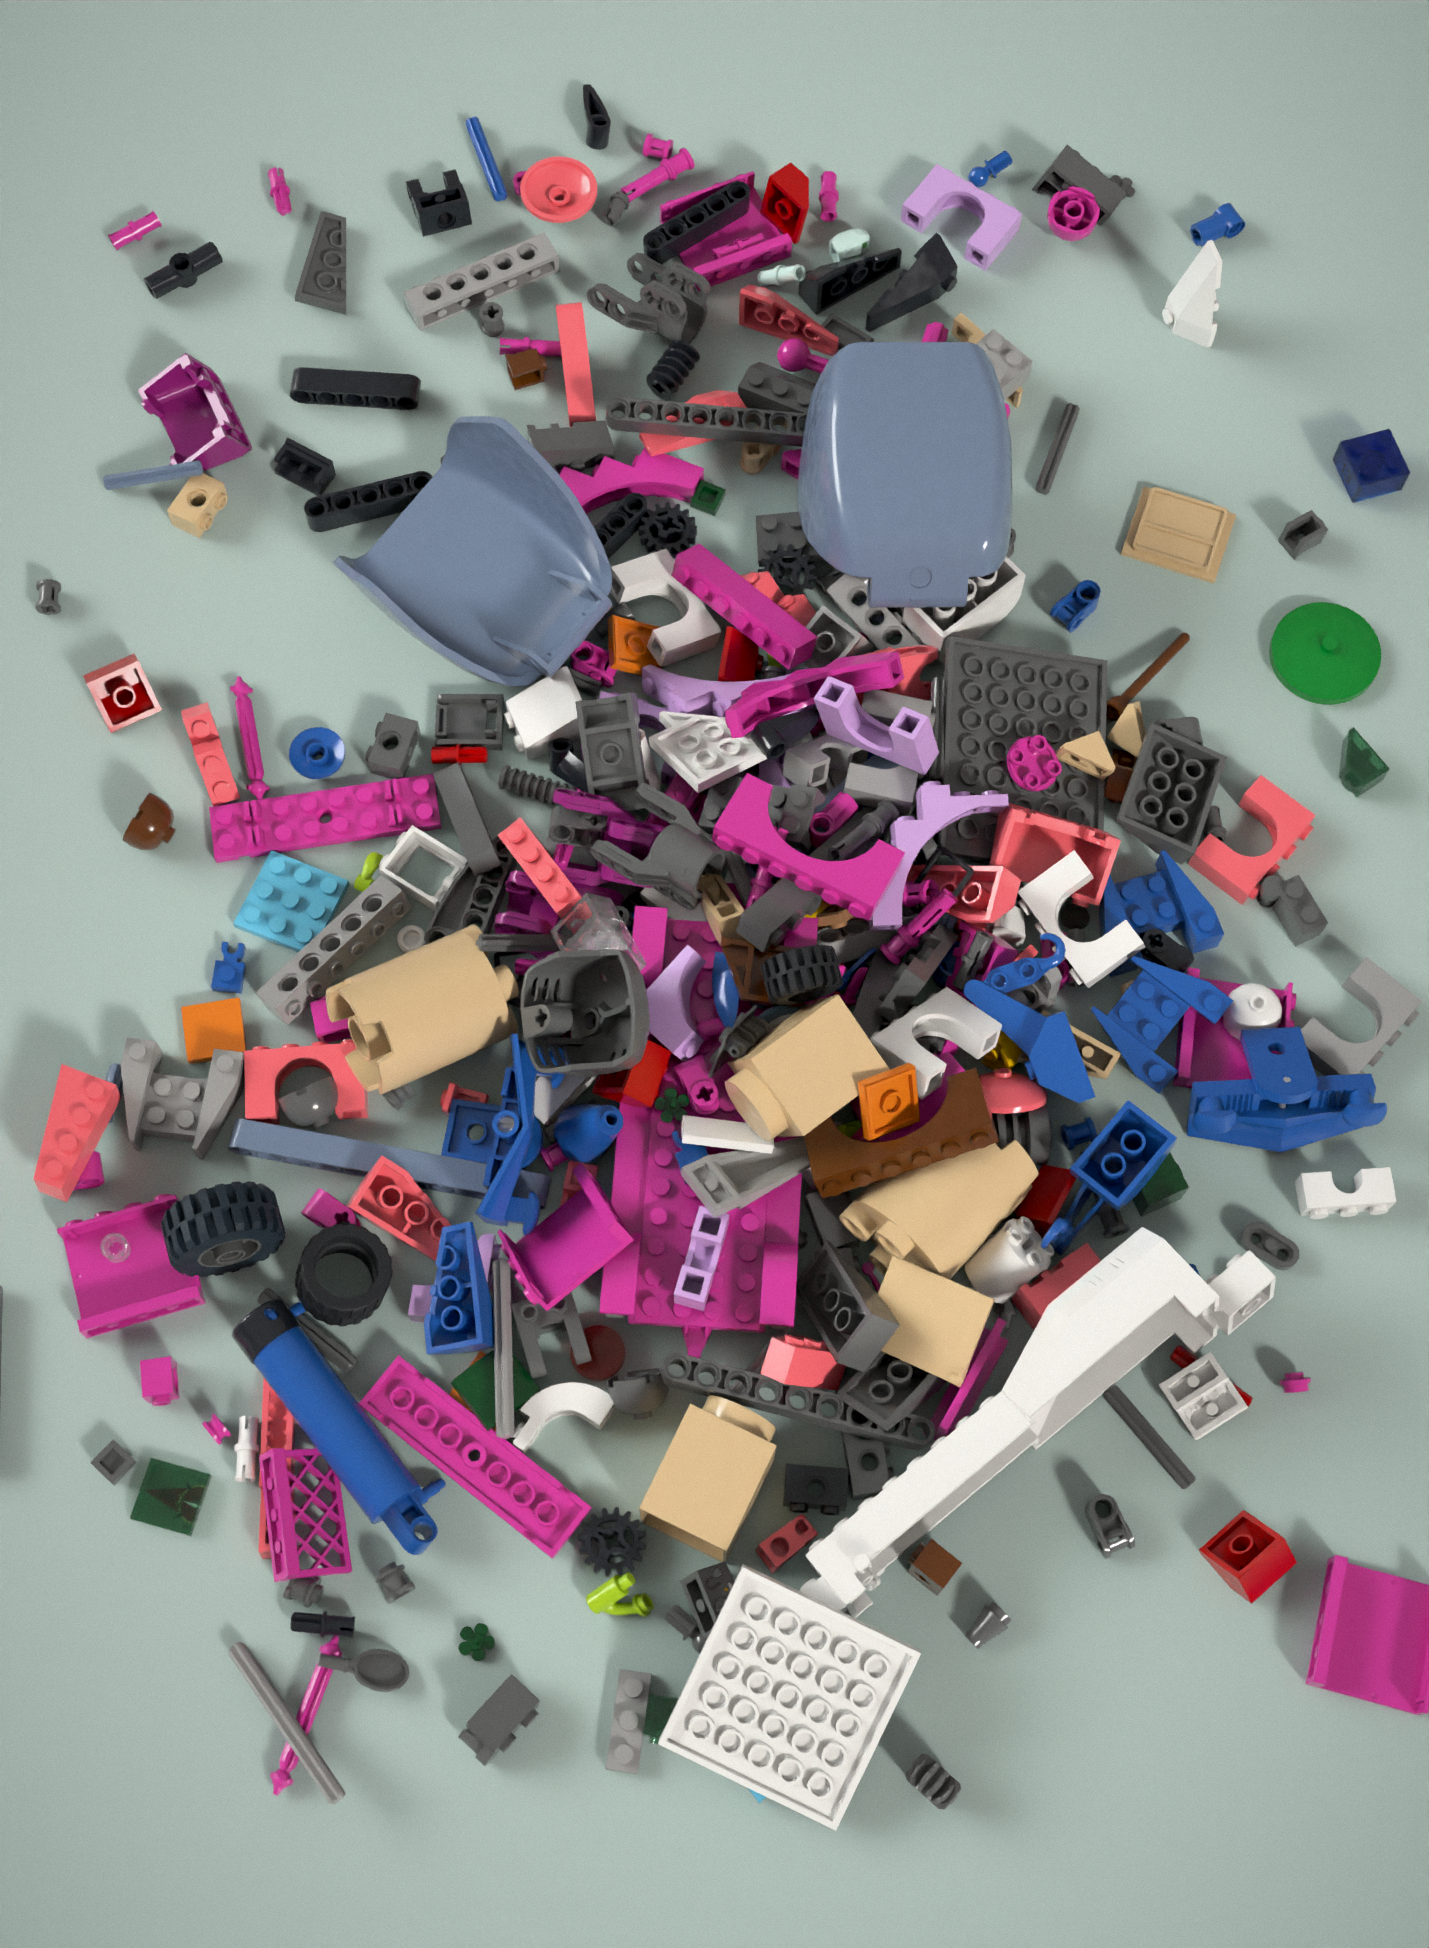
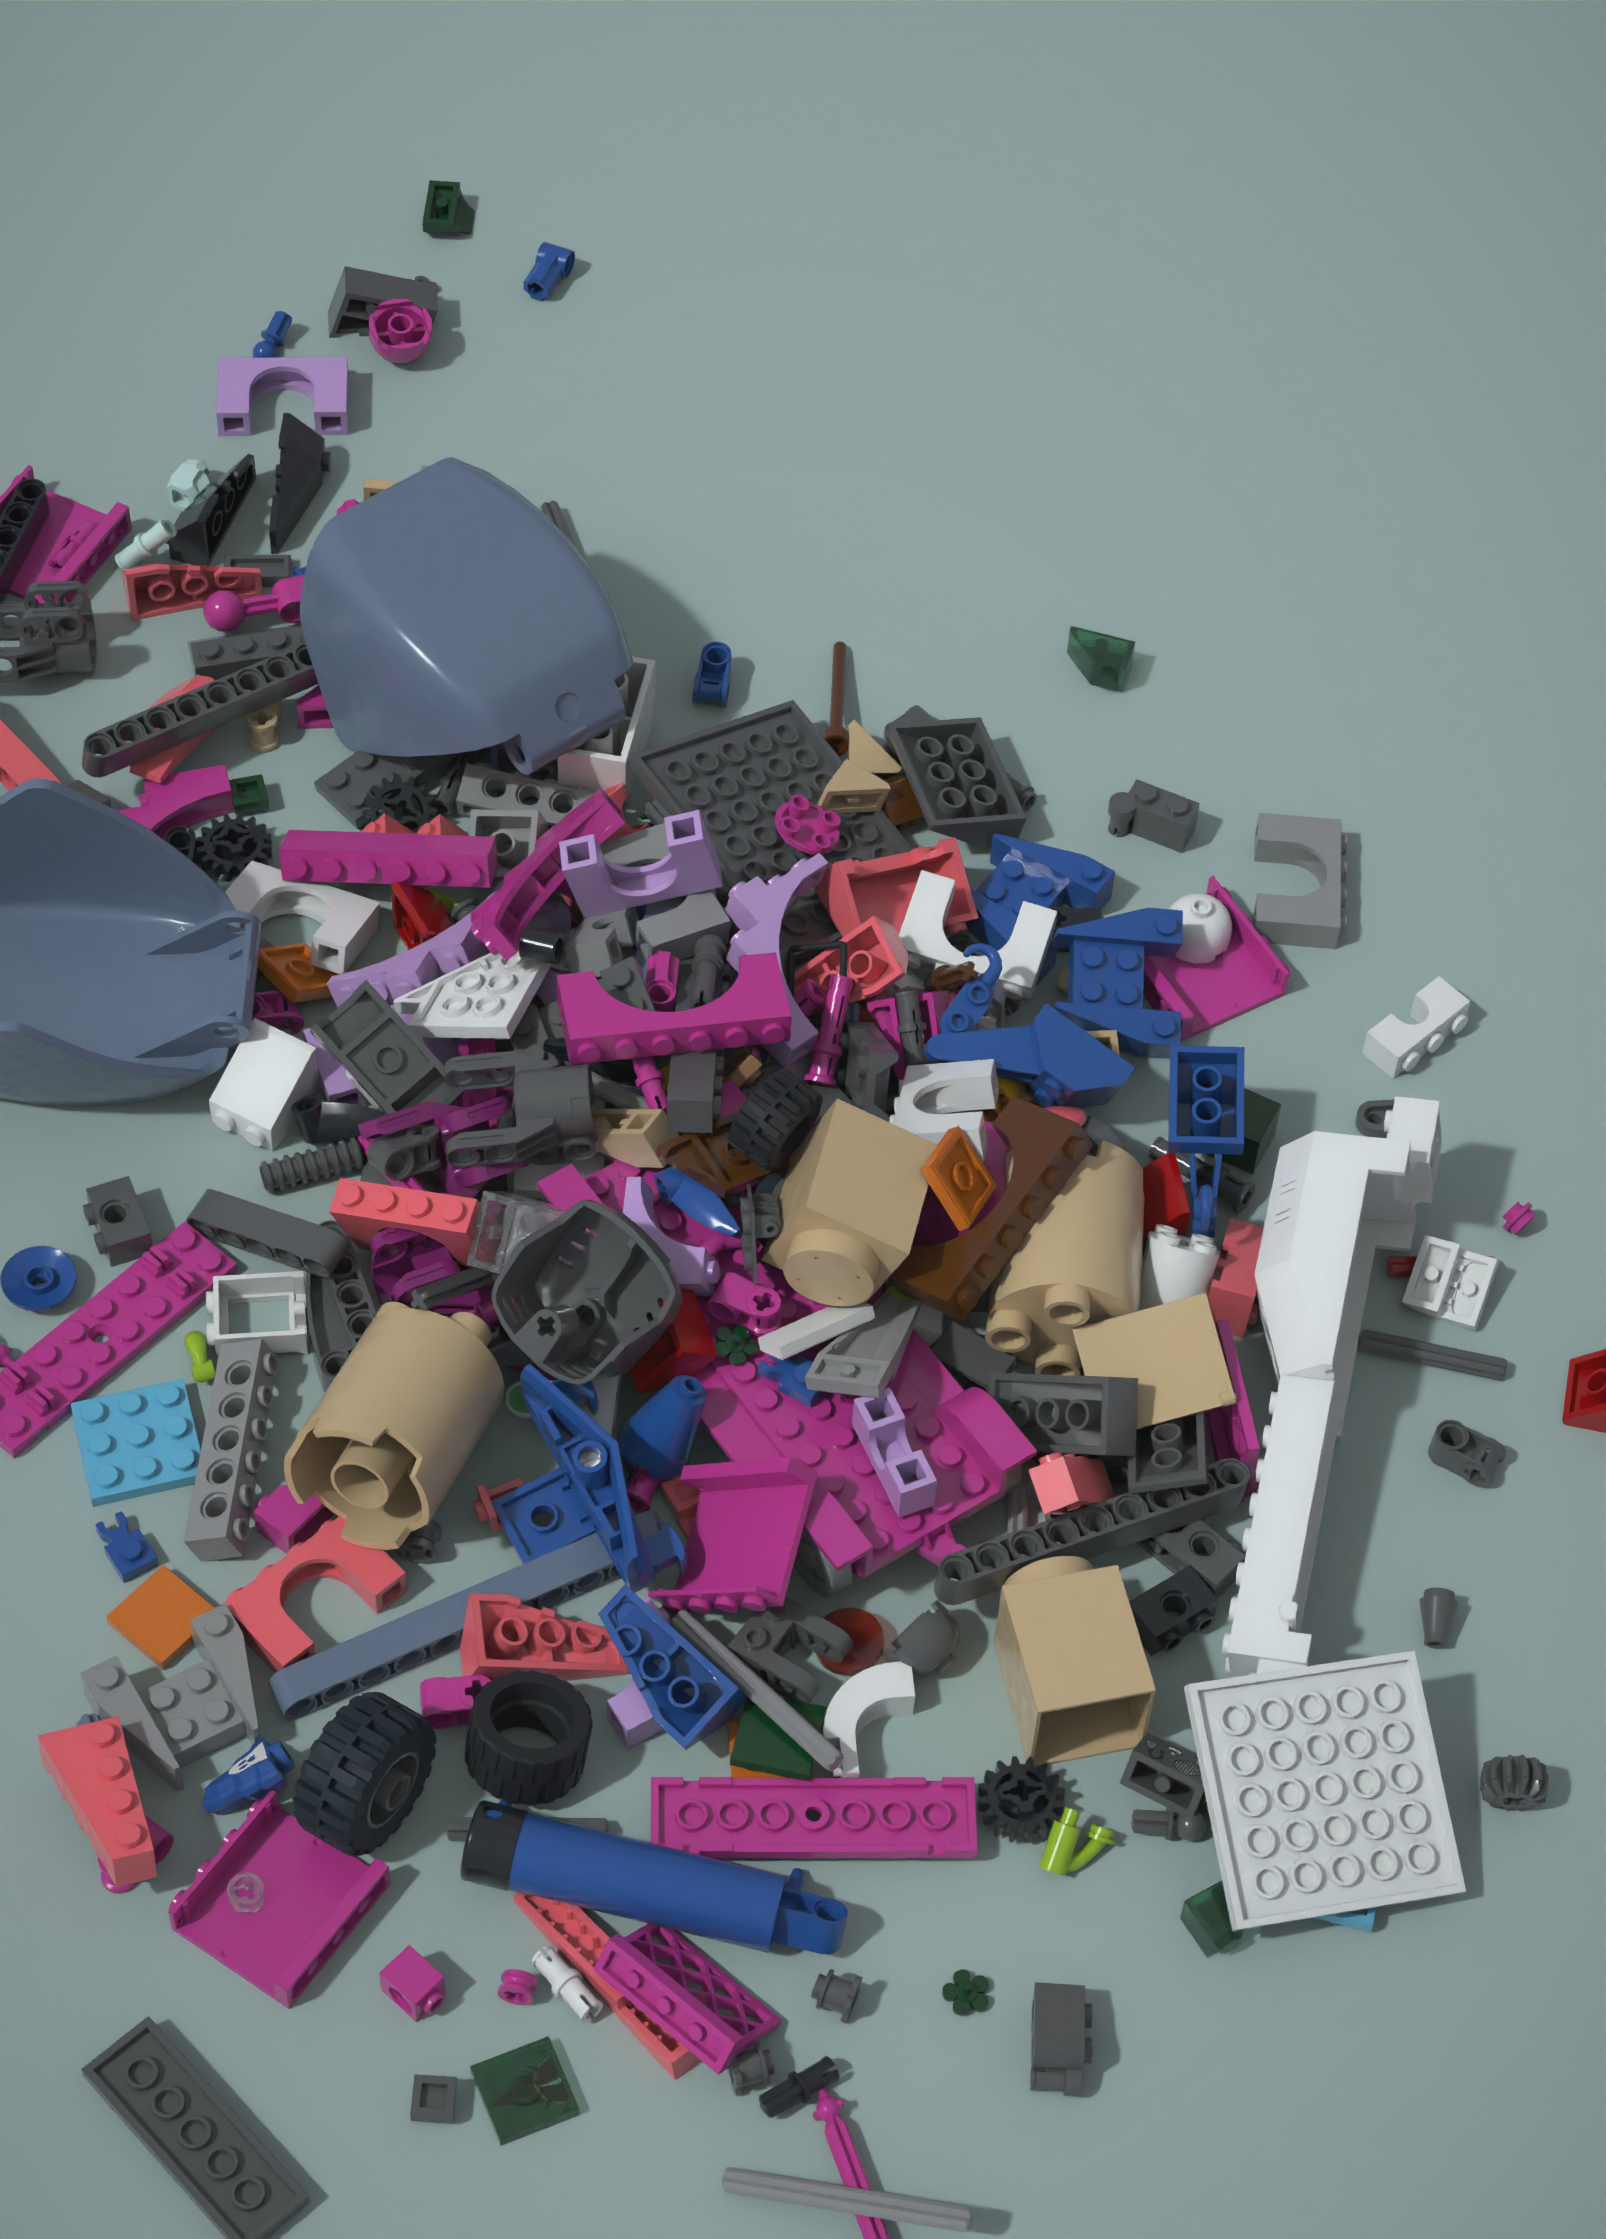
camera: 40 degrees left, 15 degrees down
(177, 1175) = (249, 1777): none -> blue rock
(311, 1103) = (341, 1607): dark grey cylinder -> none
(374, 1669) = (886, 2088): dark grey piece -> none
(410, 938) = (302, 1393): white tile -> none
(459, 754) = (195, 1186): red axle -> none
(464, 720) = (173, 1157): dark grey container -> none
(628, 1721) = (1182, 1952): light grey plate -> none
(672, 369) = (103, 693): black piece -> none
(786, 1543) = (1189, 1667): coral leg -> none
(787, 201) = (94, 471): red slope -> none
(828, 196) = (125, 450): dark pink pin -> none
(932, 1566) = (1346, 1594): reddish brown brick -> none
(1030, 941) = (949, 977): none -> reddish brown axle
(1078, 1133) = (1134, 1132): blue bush -> none
(1179, 533) = (751, 560): tan piece -> none
(1185, 138) = (447, 209): none -> dark green slope
(1194, 300) = (593, 340): white wedge -> none
(1240, 874) = (1082, 749): coral arch -> none
(1284, 1099) = (1325, 971): blue piece -> none
(1307, 524) = (876, 483): dark grey window -> none
(1325, 653) = (983, 585): green dish -> none
(1371, 465) = (883, 397): clear blue brick -> none

